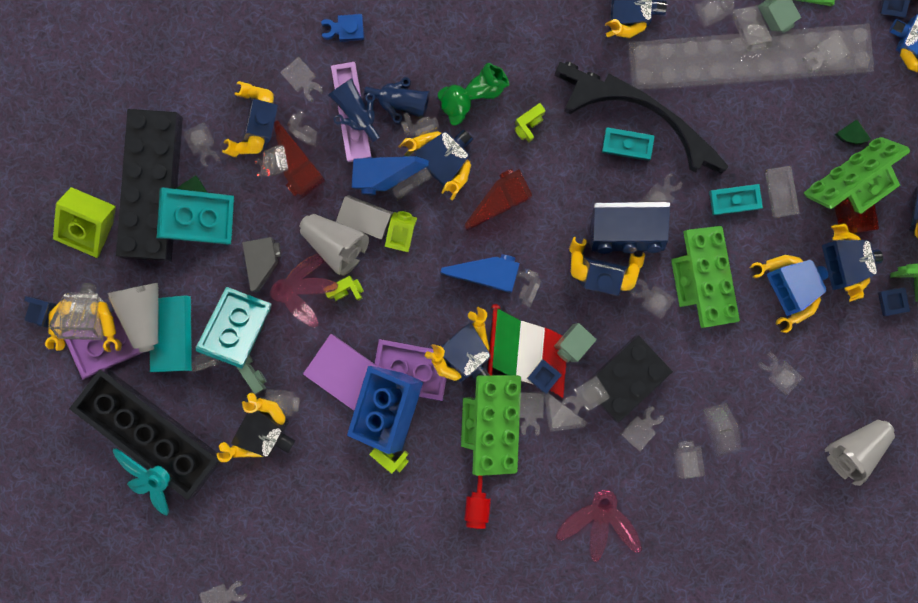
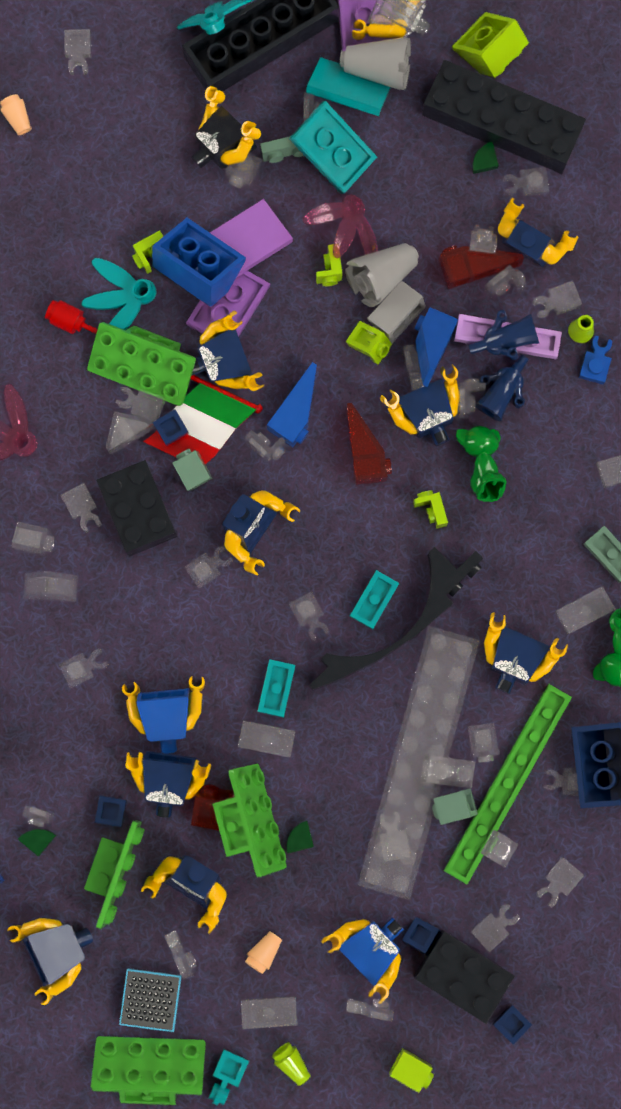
camera: 110 degrees right, 5 degrees down
(195, 216) = (456, 148): teal tile -> none
(261, 260) = (389, 196): dark grey slope -> none
(323, 54) = (578, 332): none -> lime cone
(436, 461) = (129, 296): none -> teal plant
(588, 394) = (134, 457): clear plate -> none
(630, 227) = (286, 564): dark blue slope -> none
(705, 277) = (208, 628): bright green bracket -> none

